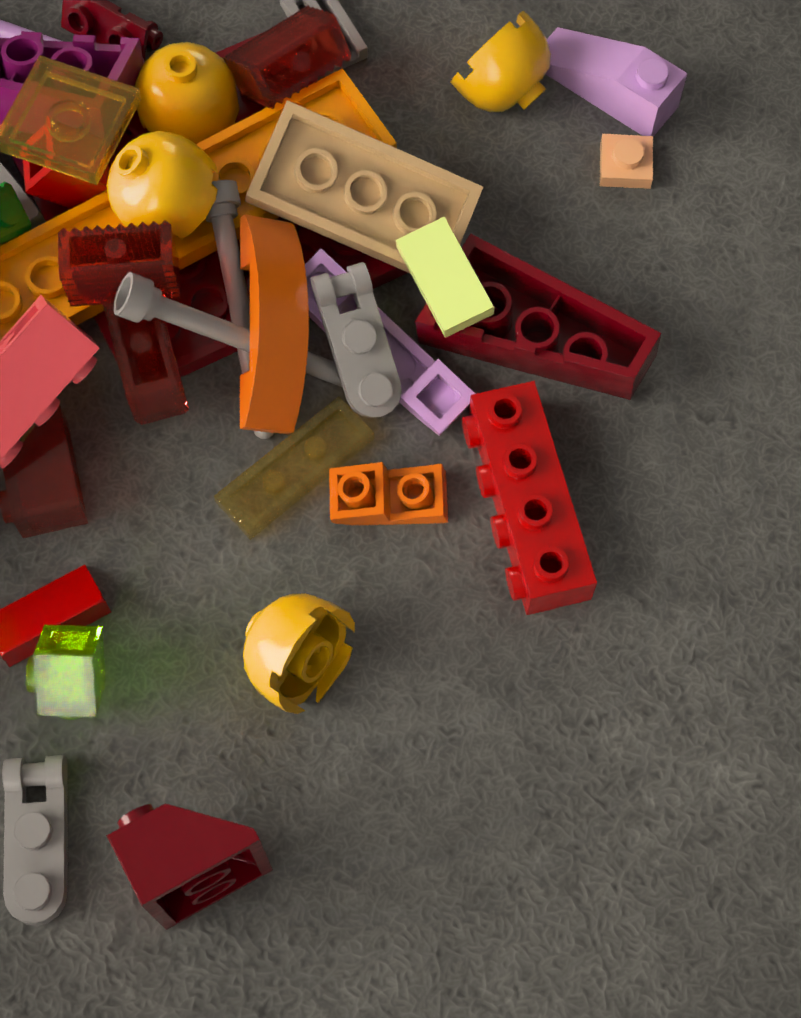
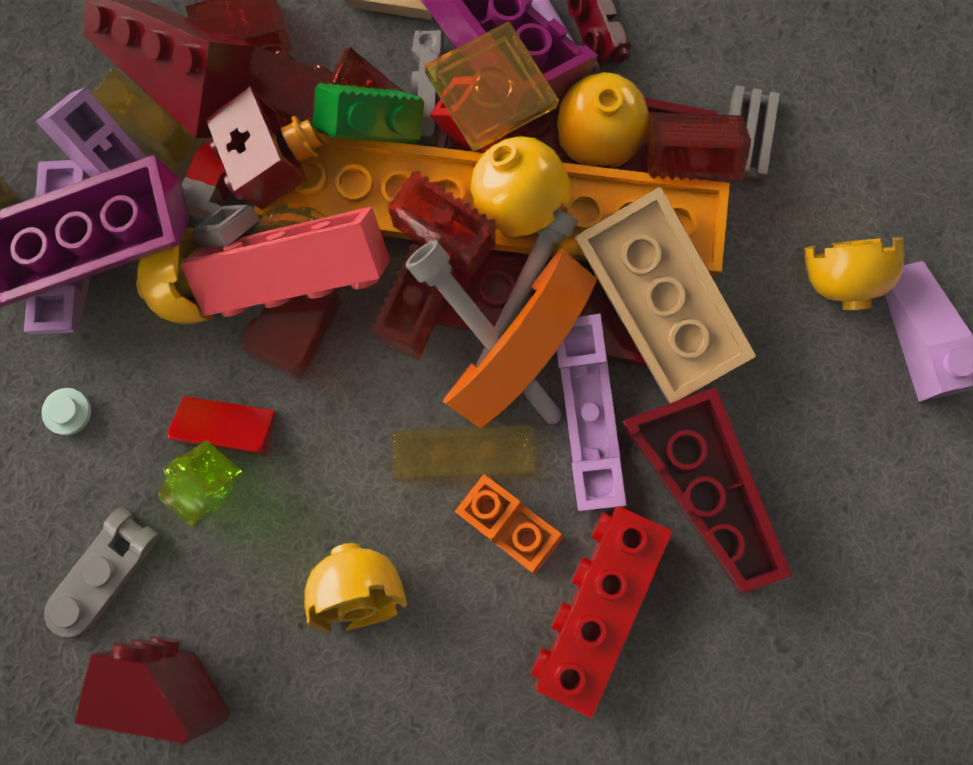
camera: 40 degrees right, 10 degrees up
(358, 342) = (572, 403): light grey plate -> none
(445, 277) = (668, 407): yellowish green tile -> none
(626, 161) = (886, 406): light nougat plate -> none

